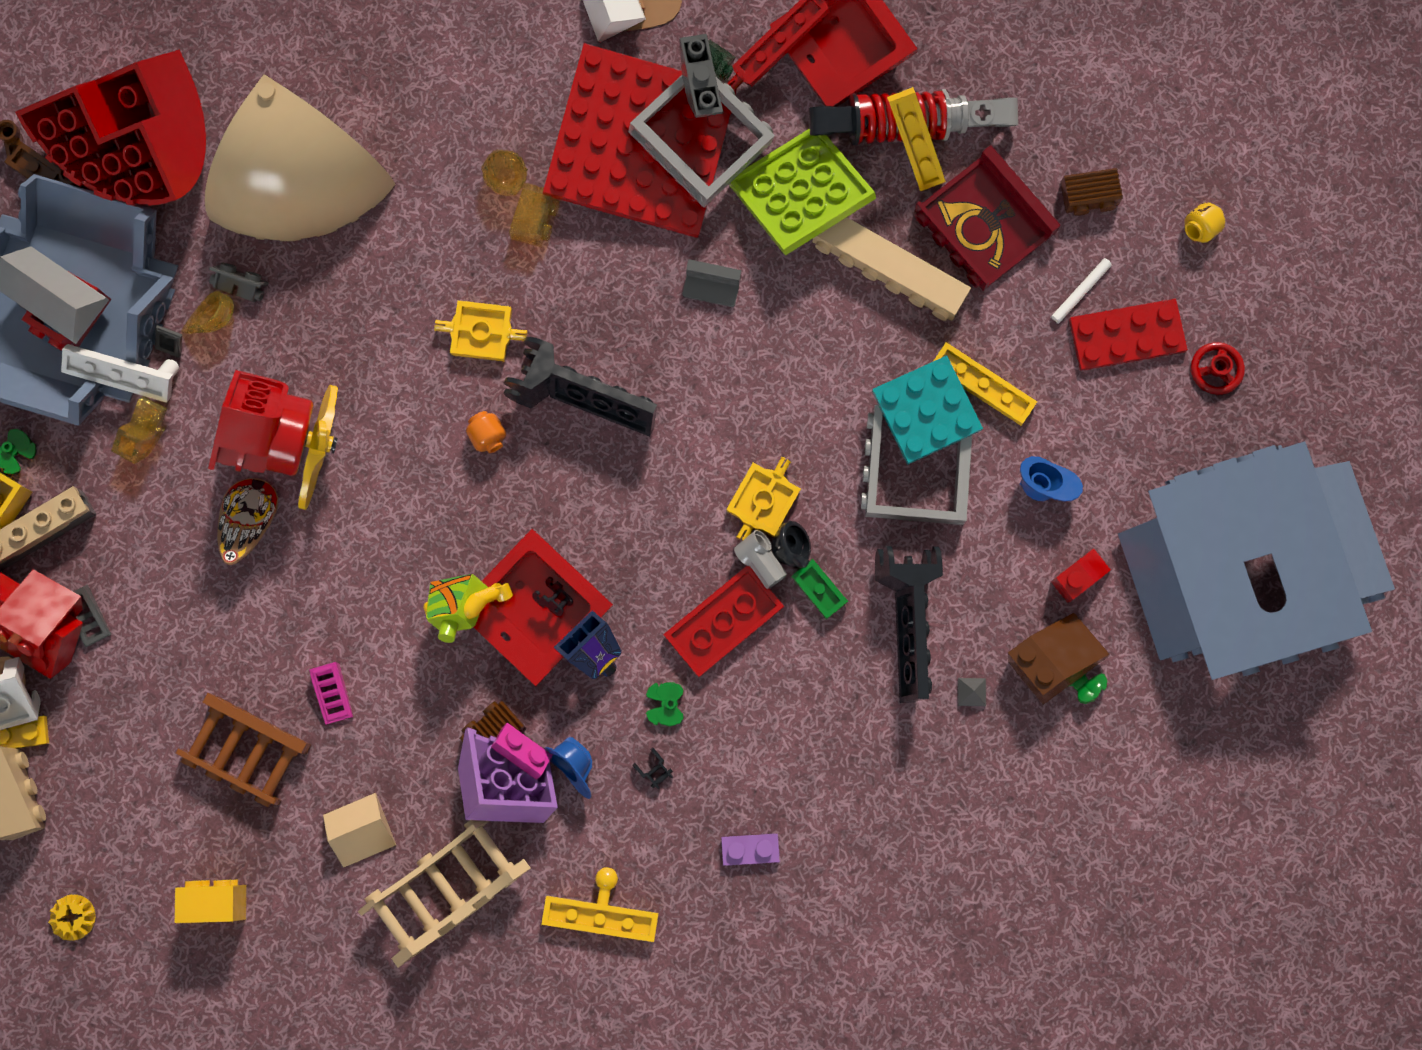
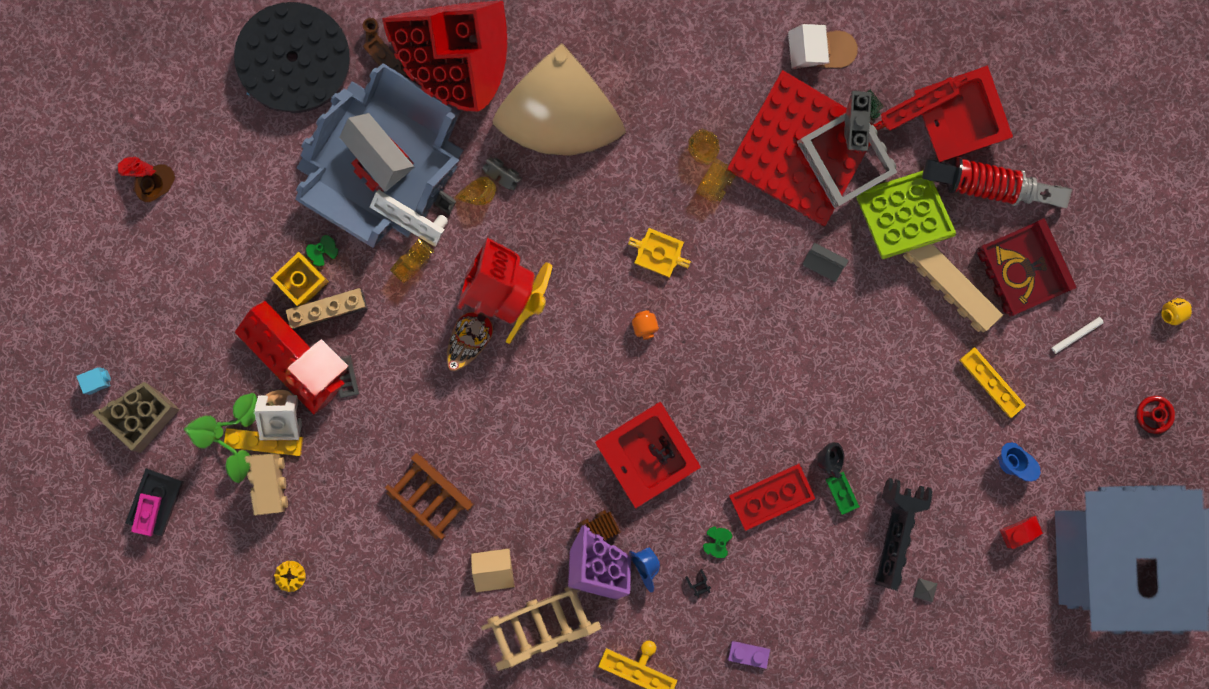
camera: 15 degrees right, 5 degrees up
(207, 903) = (385, 593): yellow brick -> none
(315, 674) = (489, 458): dark pink slope -> none
(457, 602) = (600, 440): torso -> none
(521, 751) = (615, 550): dark pink plate -> none
(577, 390) = (714, 313): black hinge -> none
(591, 647) = (679, 492): dark blue torso -> none
(756, 552) = (807, 457): light grey piece -> none
(763, 499) = (820, 421): yellow plate -> none
(870, 476) = (962, 436): light grey window -> none
(916, 139) = (995, 202): yellow plate -> none
(927, 409) = (949, 392): teal plate -> none
(1056, 657) = (990, 583): reddish brown slope -> none
(1089, 689) = (1004, 610): green piece -> none
(1091, 191) = (1104, 267): reddish brown brick -> none
(1128, 334) = (1101, 374): red plate -> none

